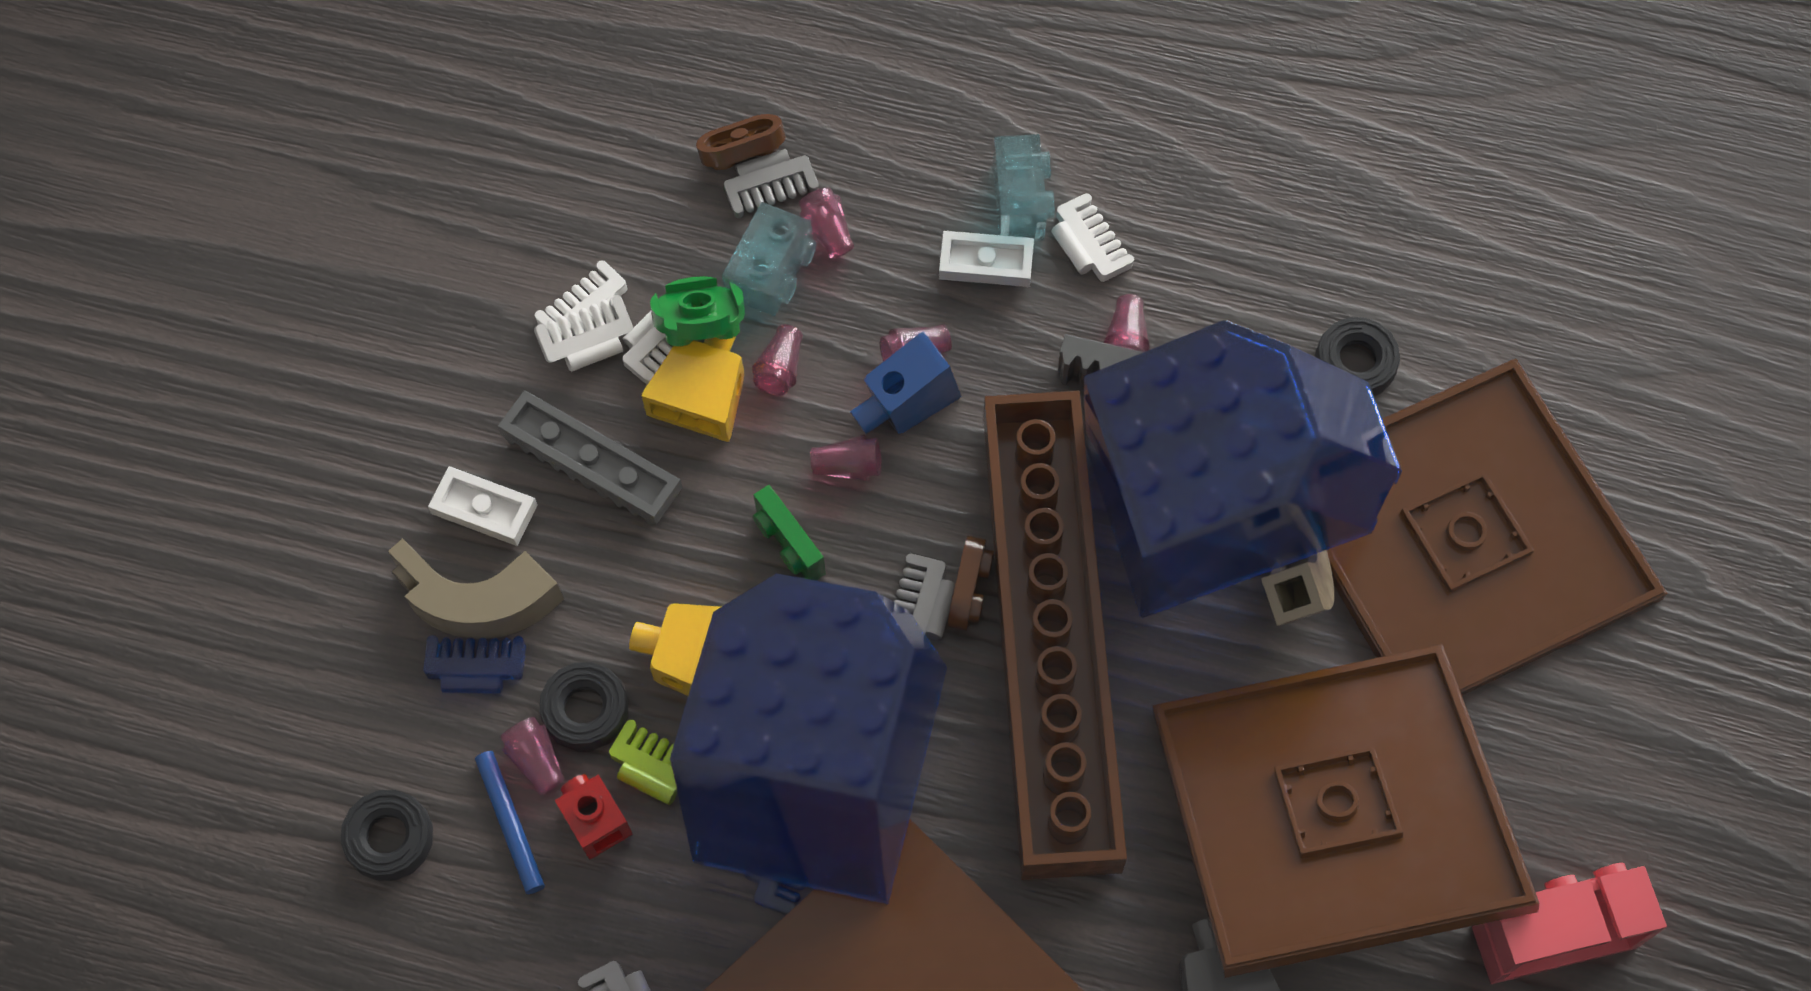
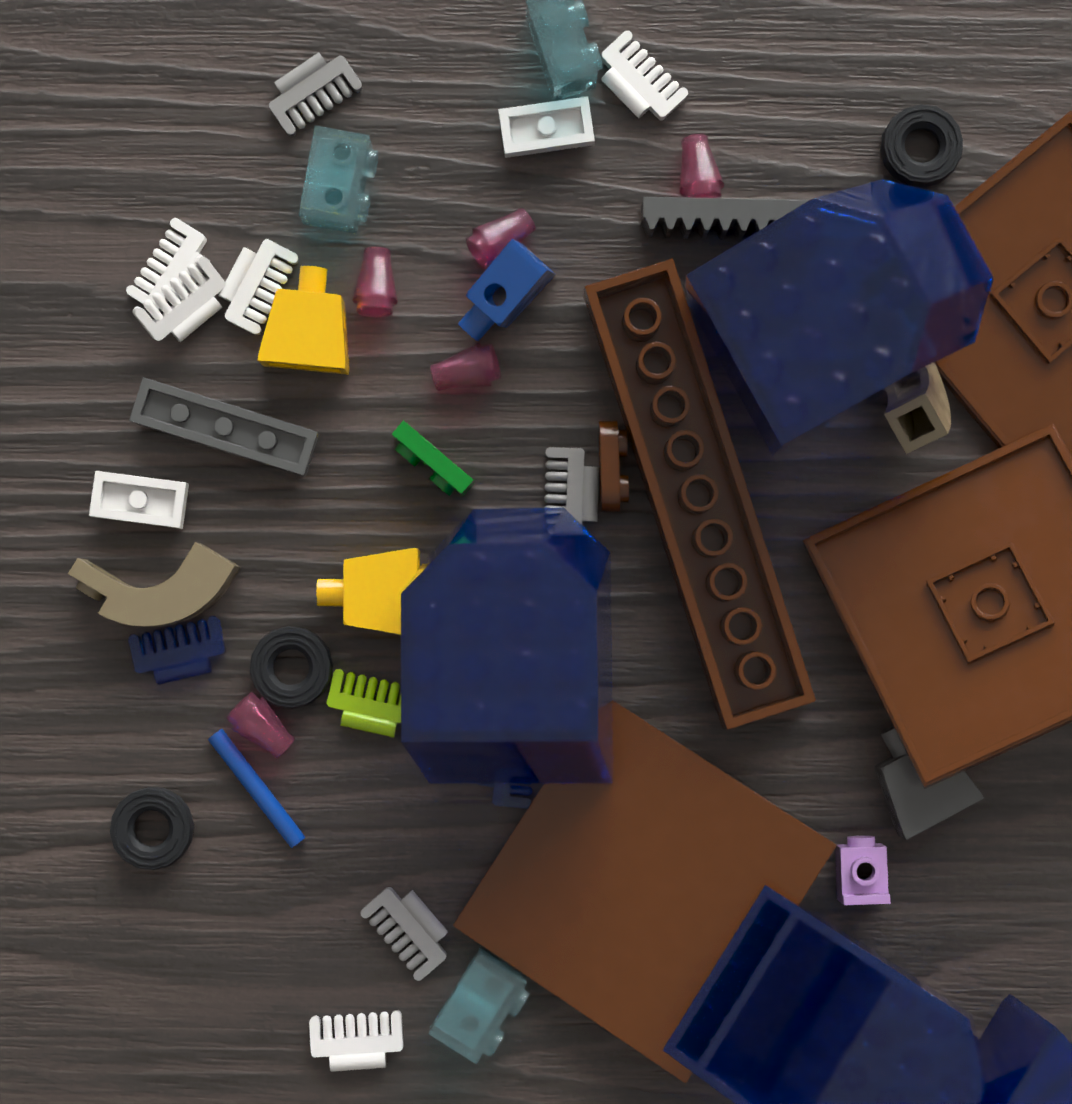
camera: 20 degrees left, 20 degrees up
(603, 827) = (347, 766): red brick -> none
(697, 310) = (288, 277): green plate -> none
(741, 140) = (273, 56): reddish brown plate -> none
(827, 221) = (380, 121): clear pink cone -> none

